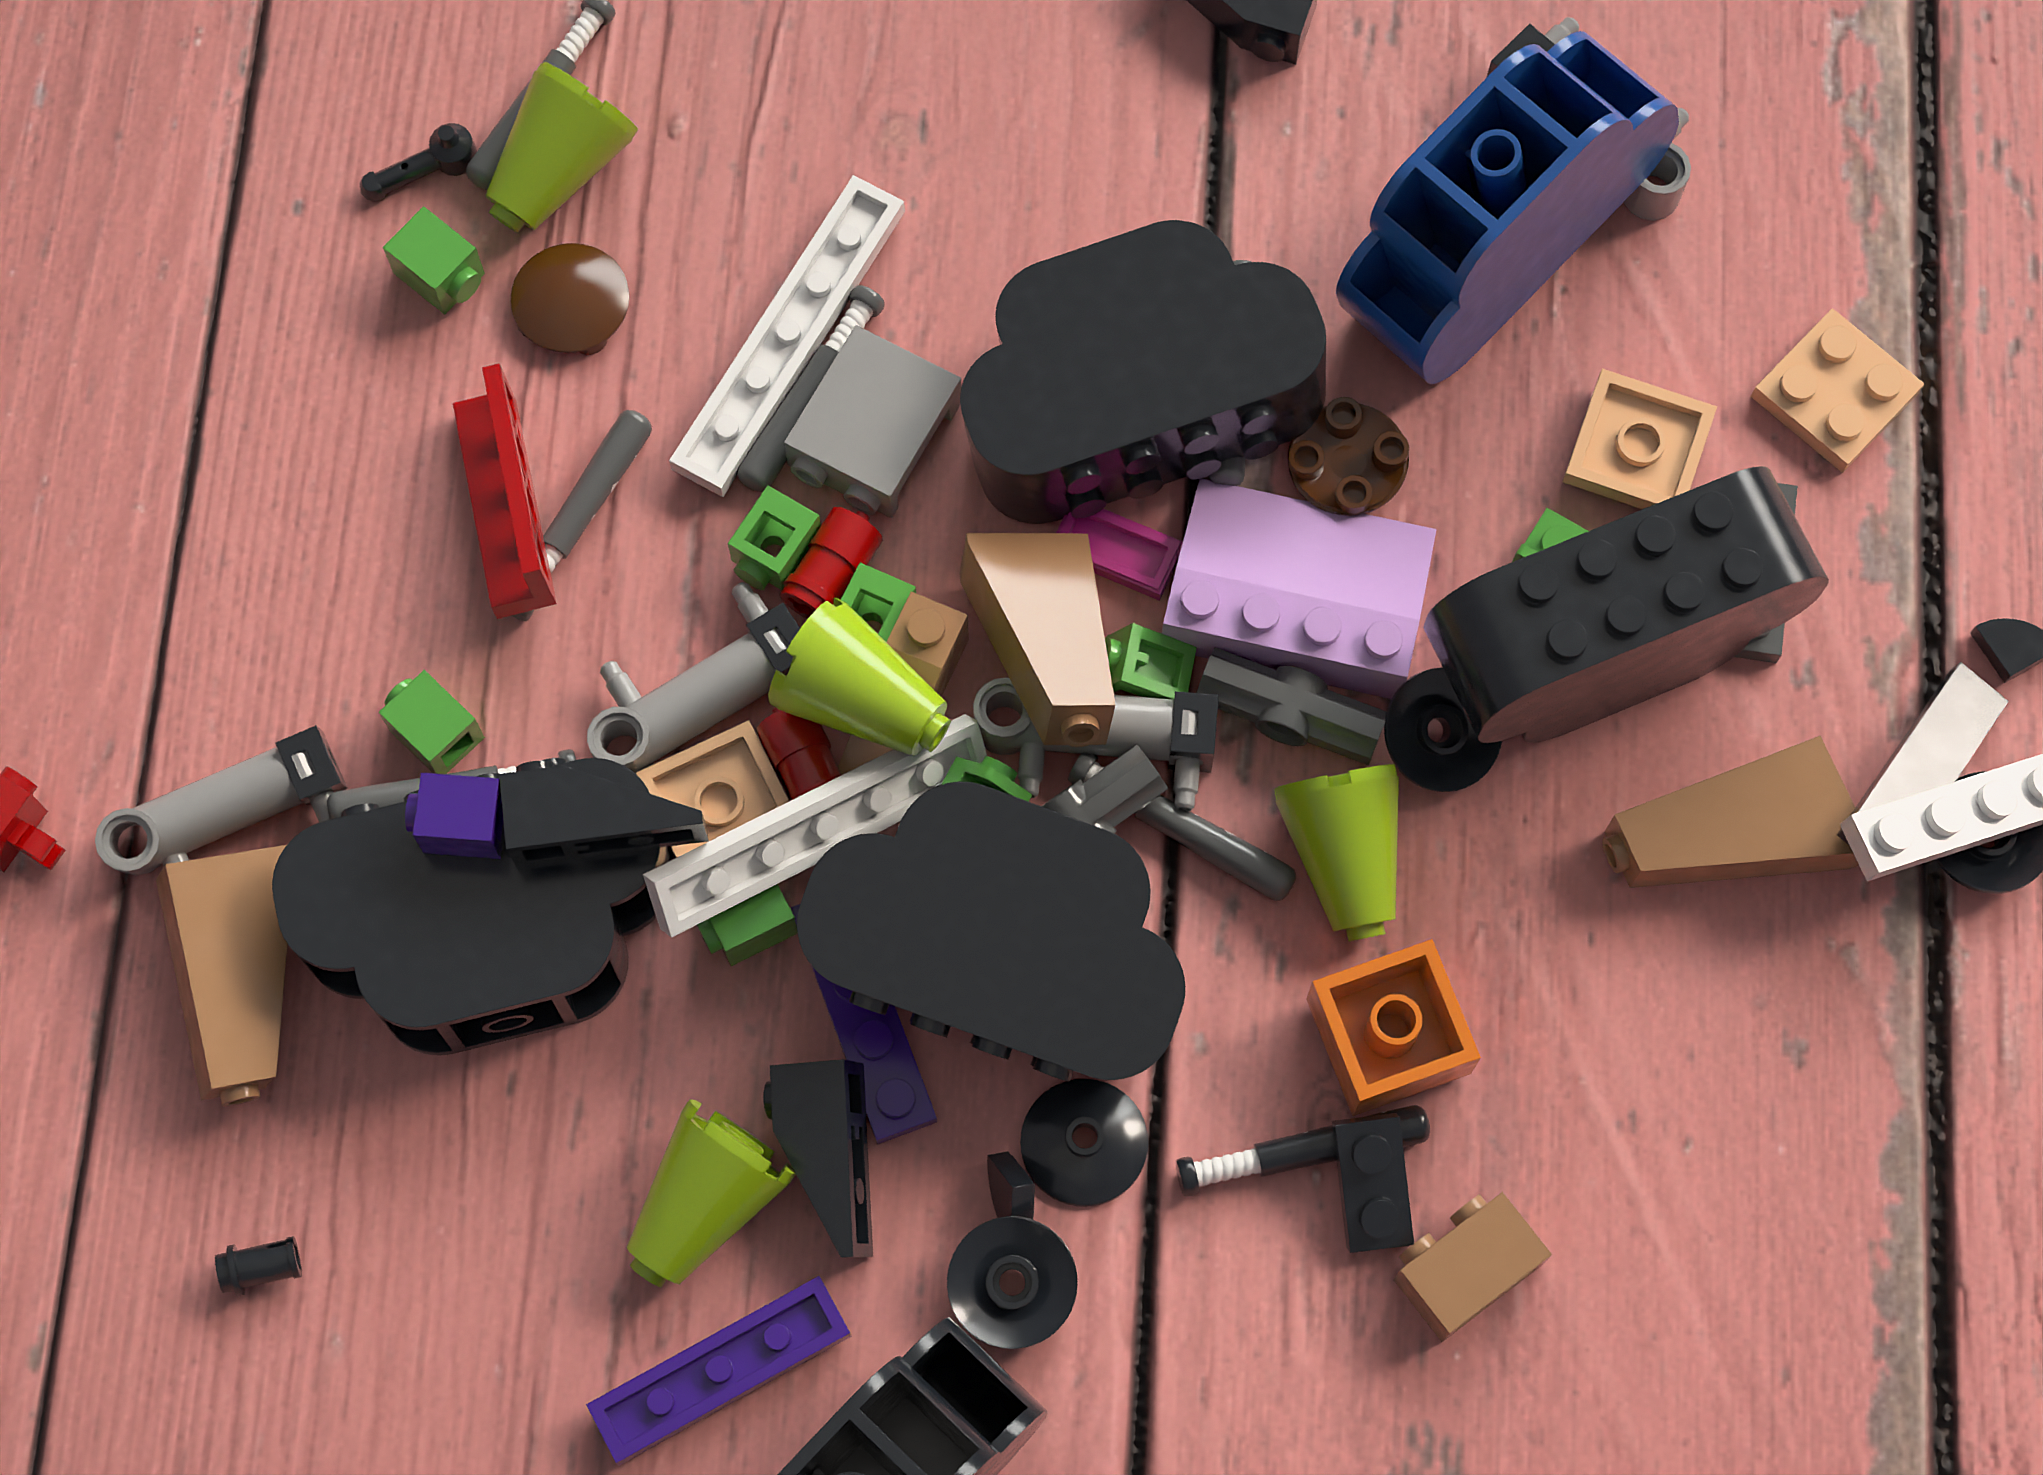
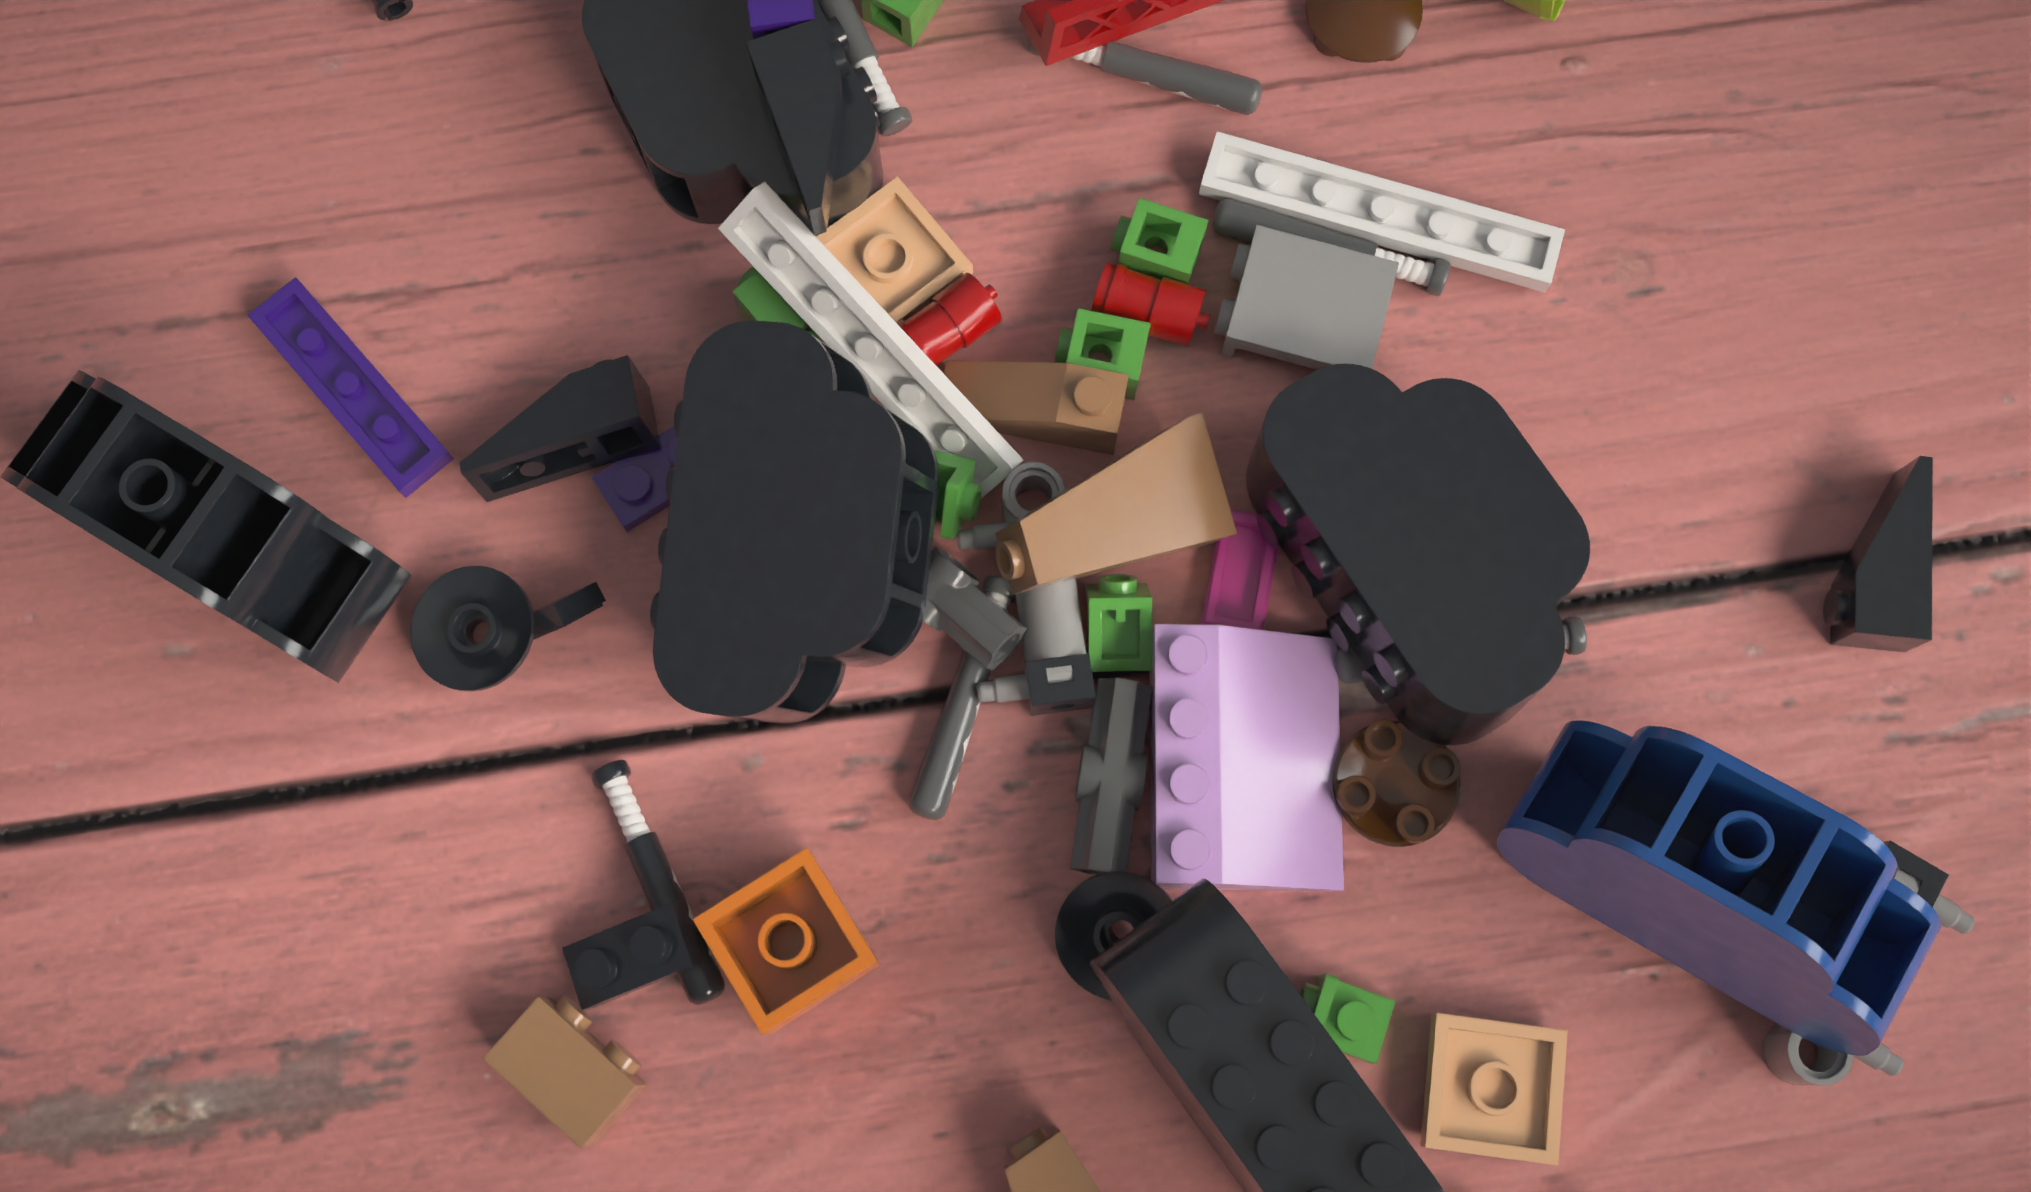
camera: 75 degrees right, 5 degrees up
(698, 695) = (1043, 268): light grey piece -> none
(701, 1195) = (508, 330): lime cone -> none
(858, 684) = (1012, 338): lime cone -> none
(1076, 1173) = (607, 699): black dish -> none
(1348, 844) = (973, 859): lime cone -> none

